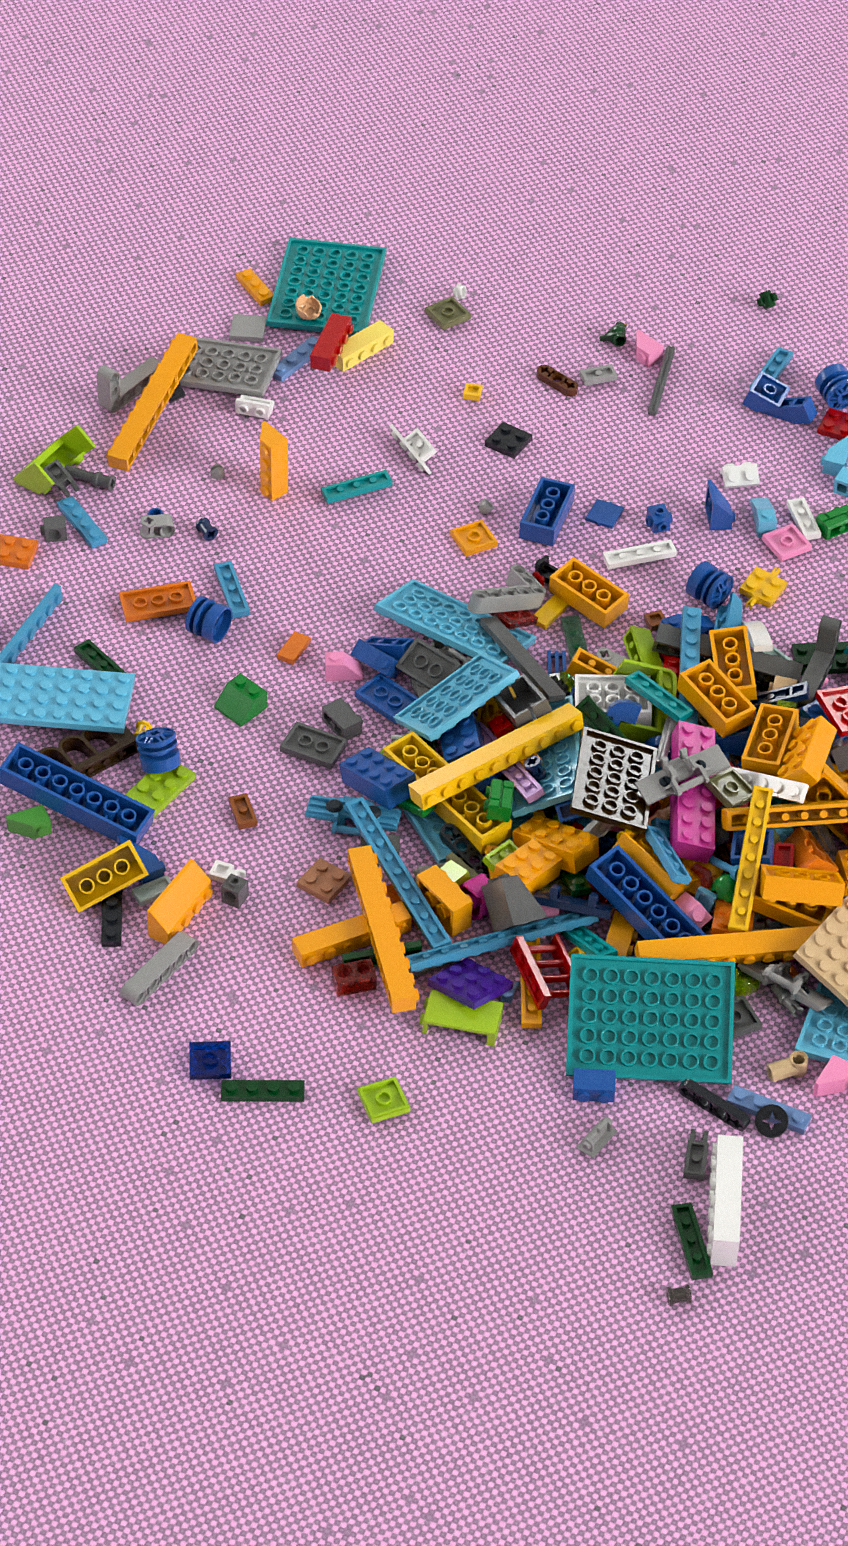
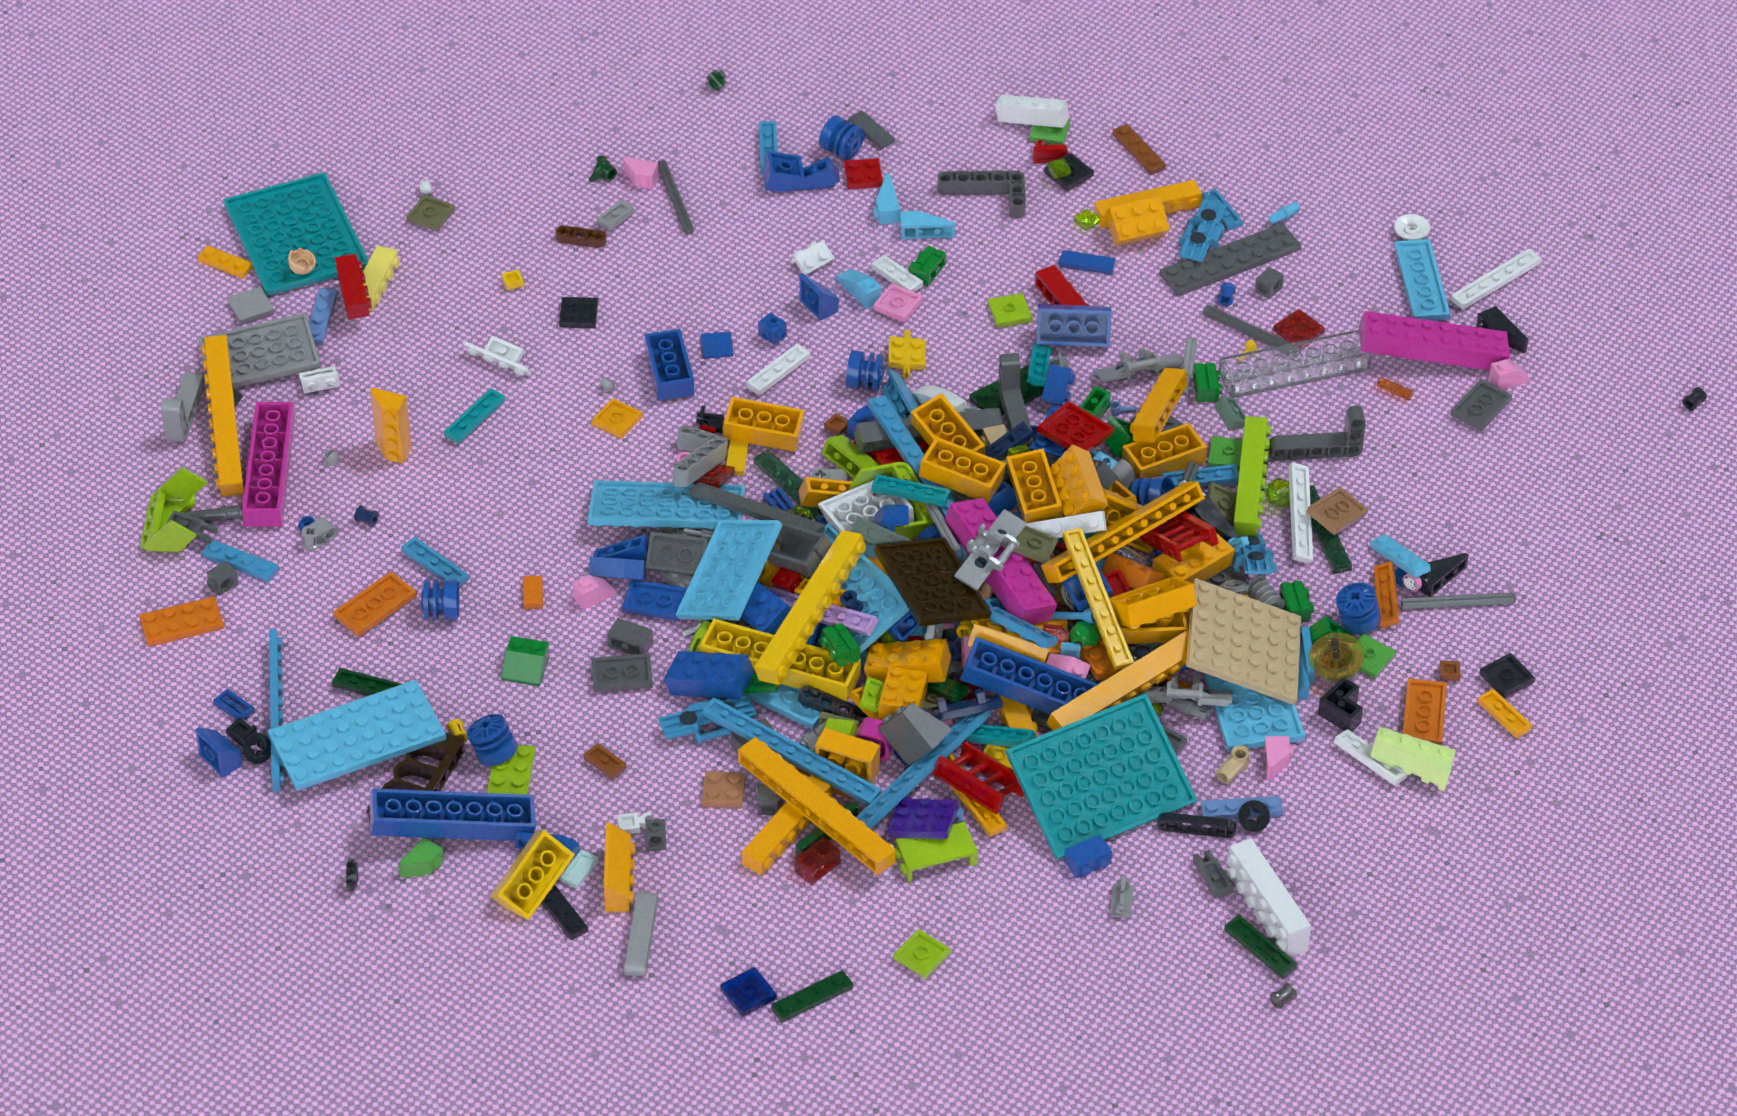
camera: 30 degrees left, 0 degrees up
(159, 455) = (268, 464): none -> dark pink brick
(349, 905) = (766, 800): none -> dark grey brick

